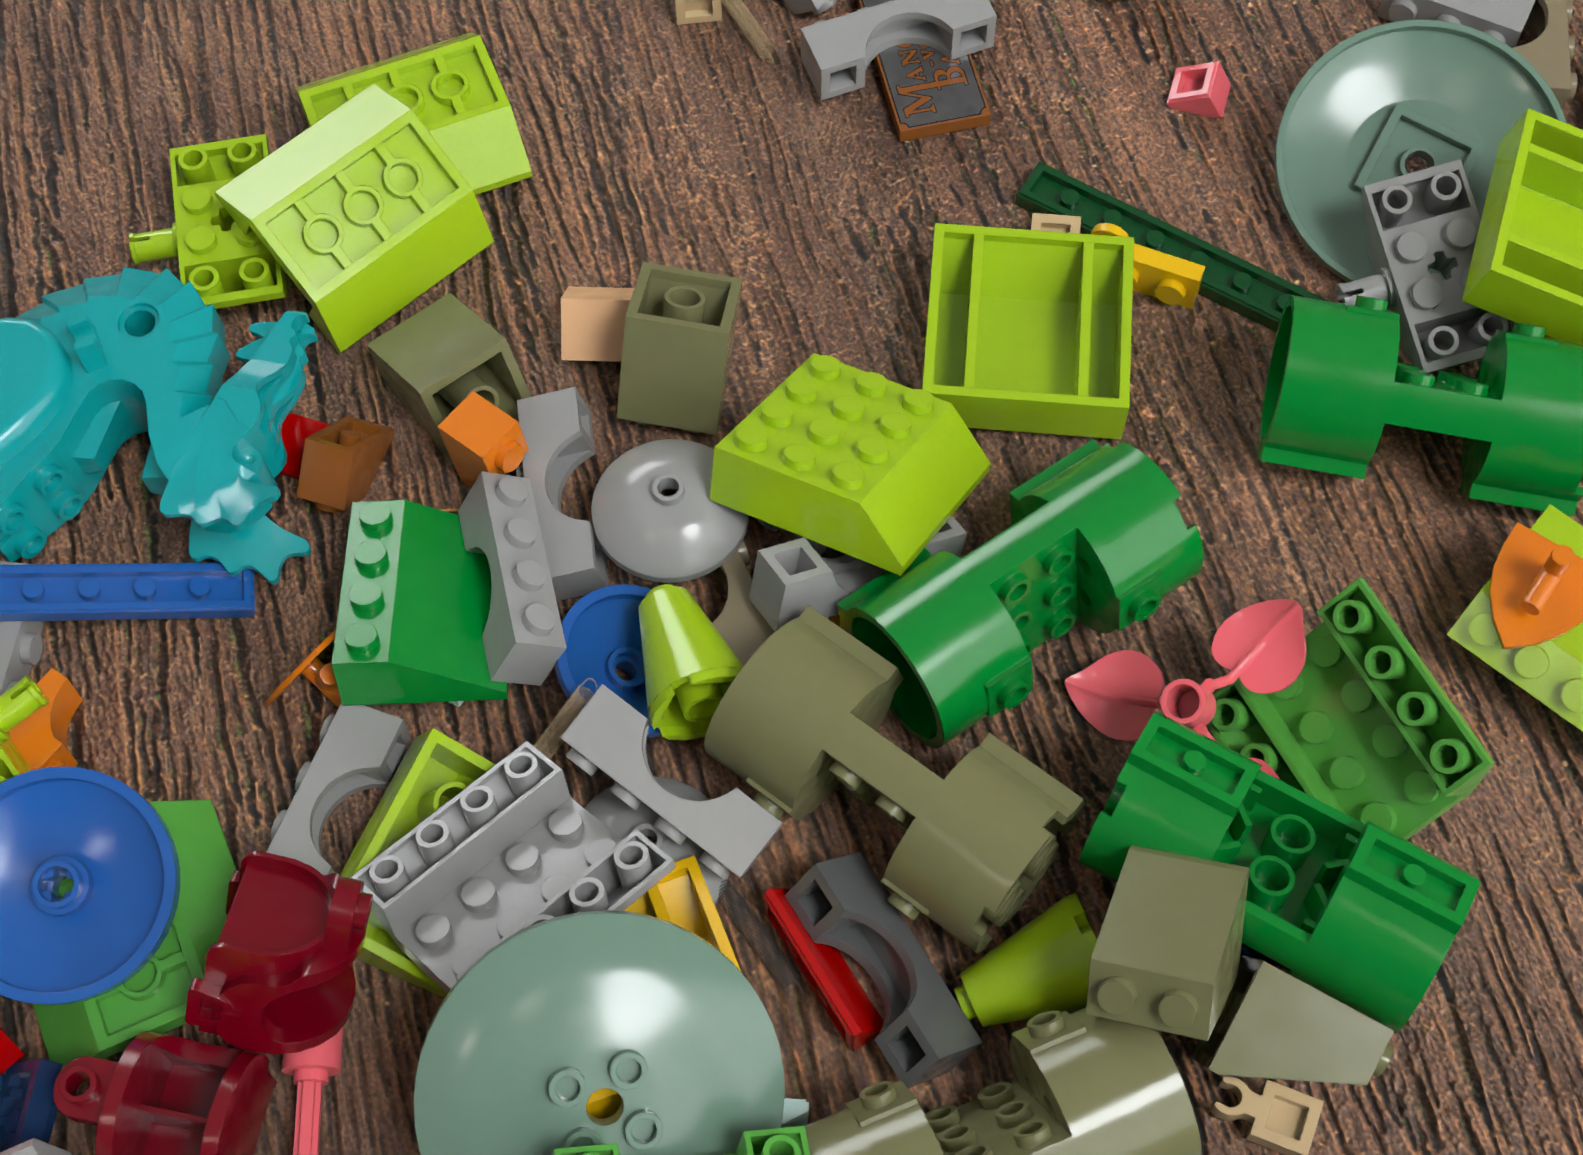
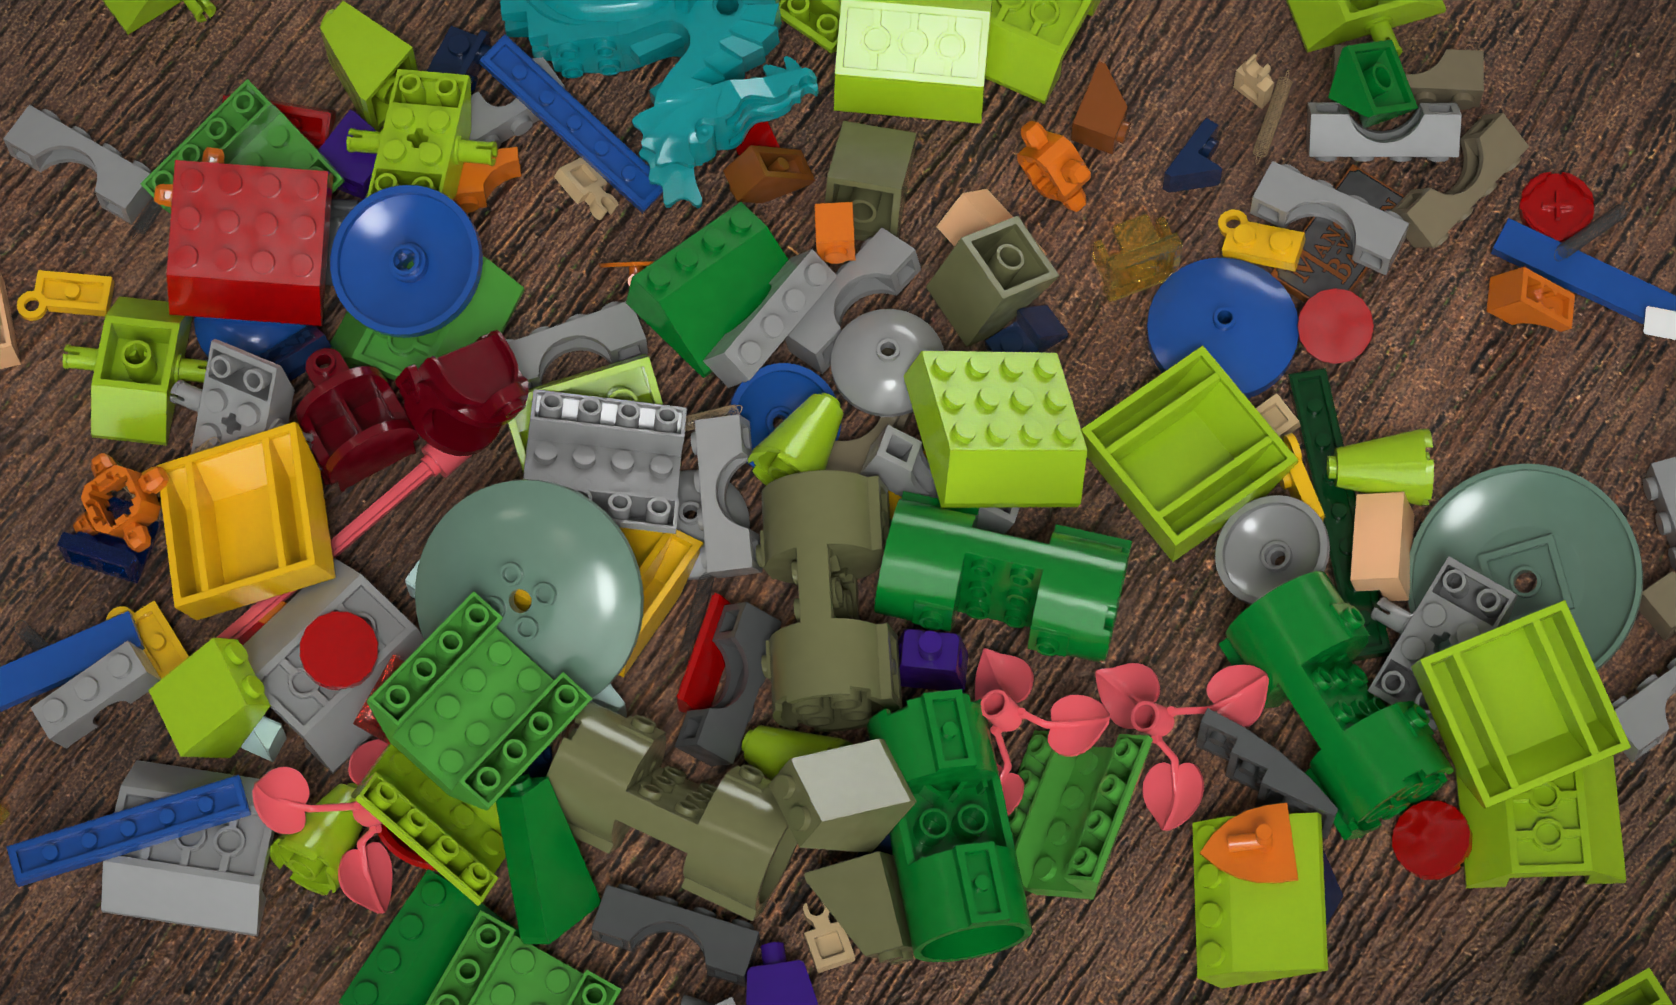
camera: 50 degrees right, 5 degrees up
(167, 640) = (586, 185): none -> tan plate
(595, 133) = (1101, 114): none -> dark orange slope
(614, 203) = (1053, 166): none -> orange piece
(727, 103) = (1192, 165): none -> dark blue slope
(757, 372) = (1033, 331): none -> dark blue slope
(795, 193) = (1145, 257): none -> clear yellow panel
(860, 113) = (1260, 242): none -> yellow hinge
(890, 193) = (1258, 312): none -> blue dish
(1006, 120) = (1335, 326): none -> red tile
(1047, 729) = (932, 660): none -> dark purple torso
(1198, 307) = (1260, 535): none -> light grey dish
(1200, 90) = (1475, 418): coral slope -> none
(1206, 175) = (1387, 466): none -> lime cone
(1278, 244) = (1382, 544): none -> light nougat piece
(1342, 477) = (1130, 695): none -> coral plant
(1448, 522) = (1263, 769): none -> dark grey slope

